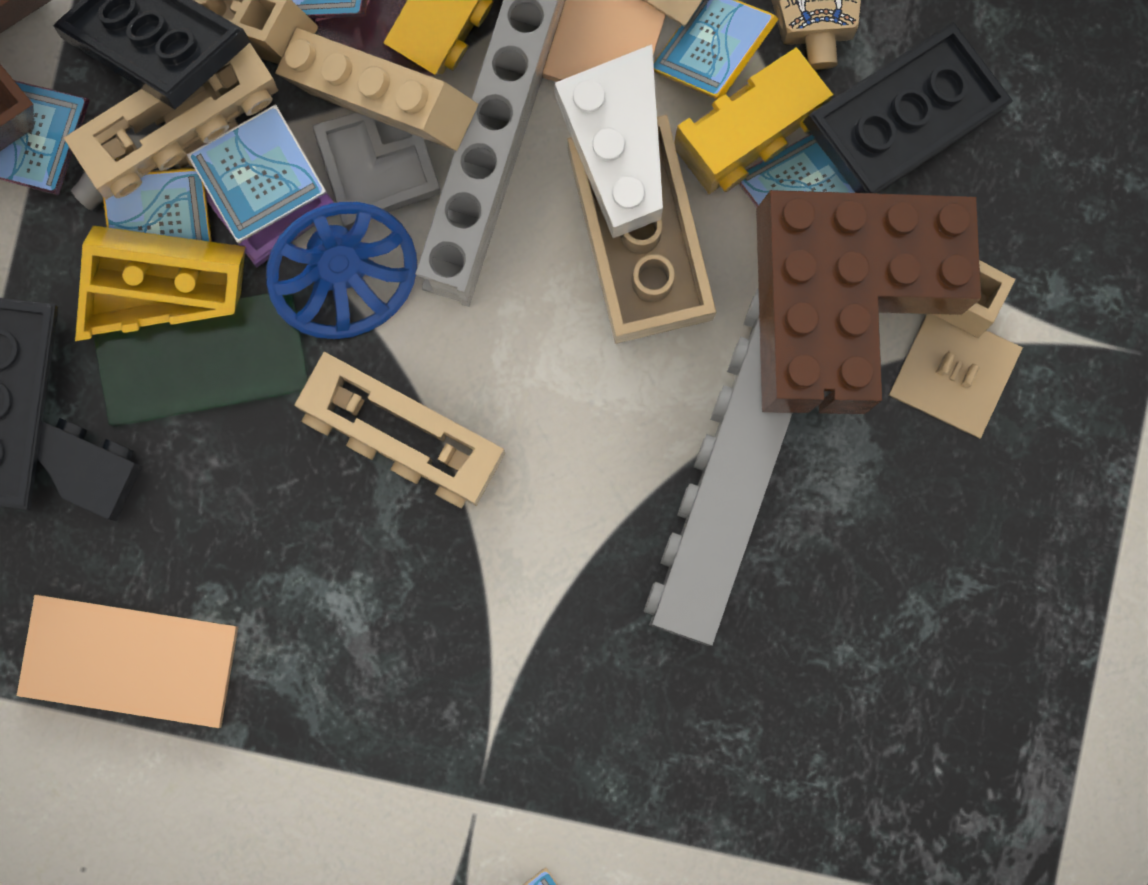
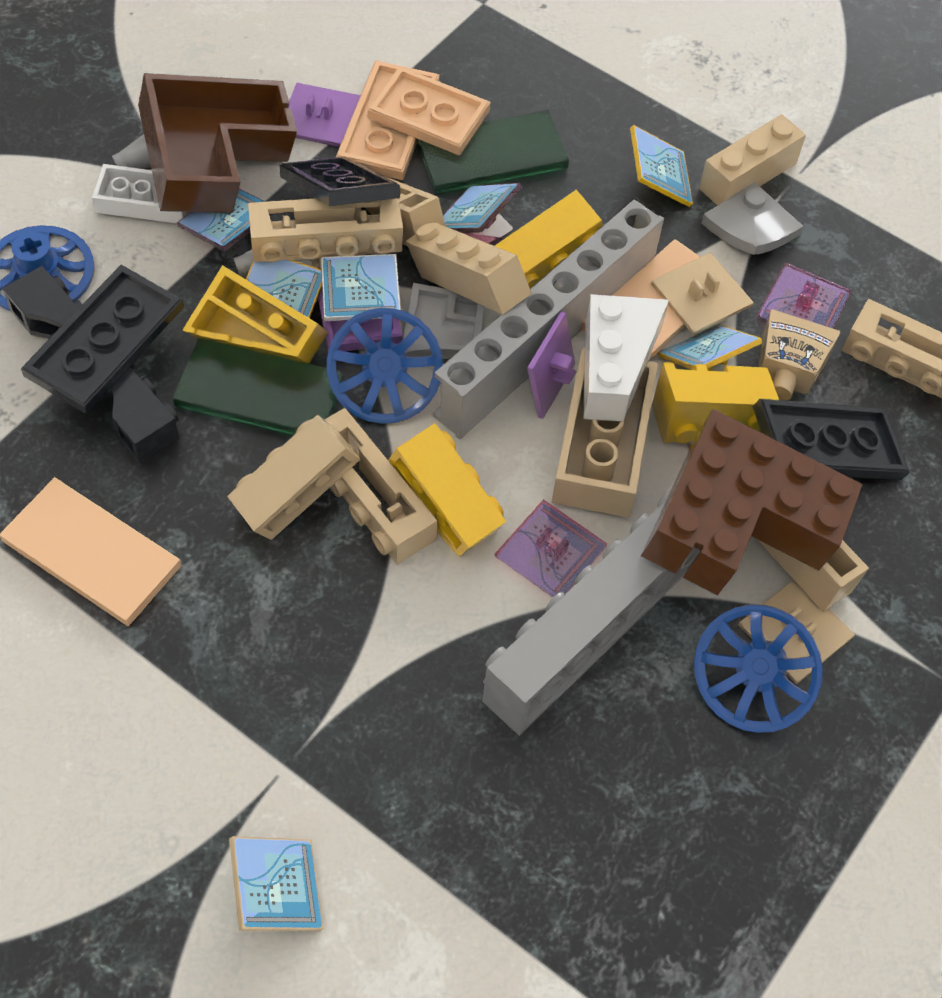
camera: 20 degrees right, 25 degrees down
(313, 473) = (293, 477): none -> tan brick
(492, 398) = (448, 489): none -> yellow wedge
(540, 170) = (552, 365): none -> medium lavender piece
(641, 403) = (550, 549): none -> clear pink piece
(936, 451) = (759, 667): none -> blue wheel

